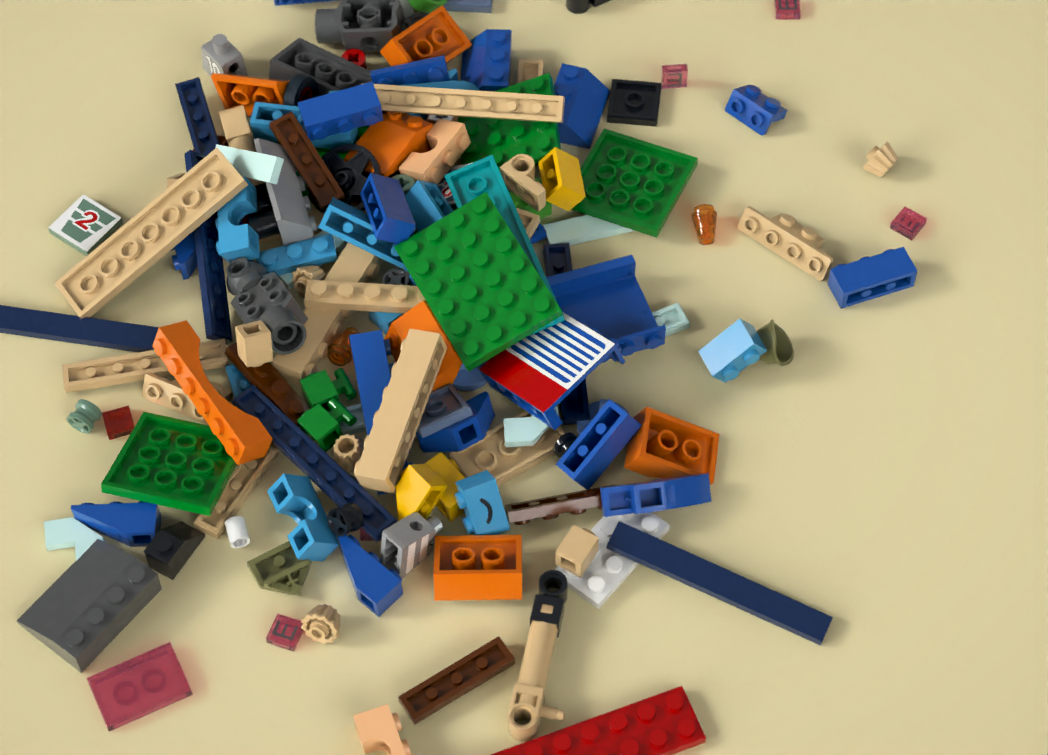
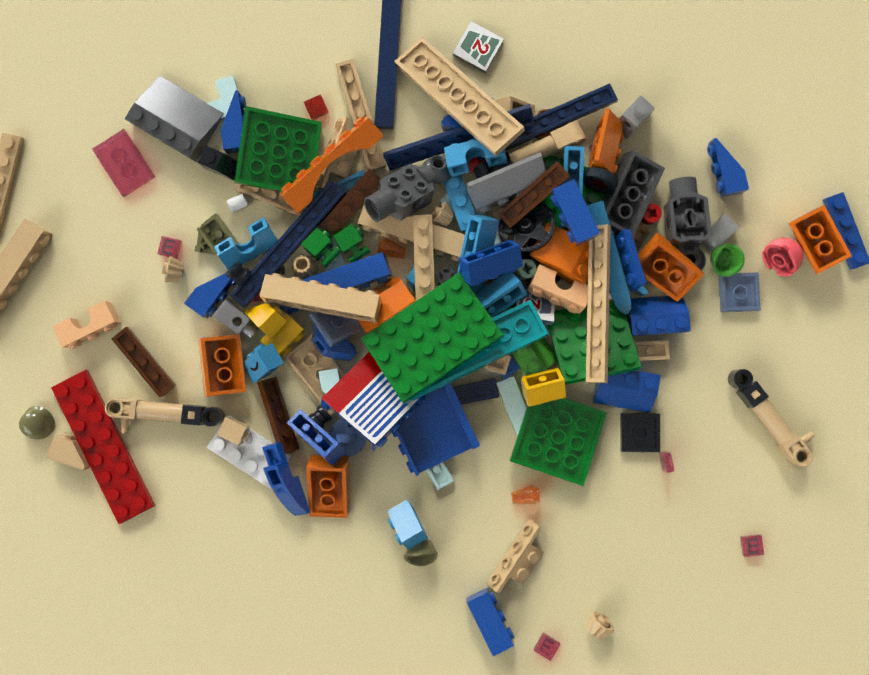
camera: 85 degrees right, 30 degrees up
(84, 416) = (314, 83): sand green wheel -> none
(253, 164) = (518, 152): light aqua tile -> none
(254, 343) = (363, 186): tan brick -> none
(520, 179) = (530, 357): tan plate -> none
(719, 583) = (227, 525): dark blue tile -> none
(754, 108) = (642, 526): blue bracket -> none

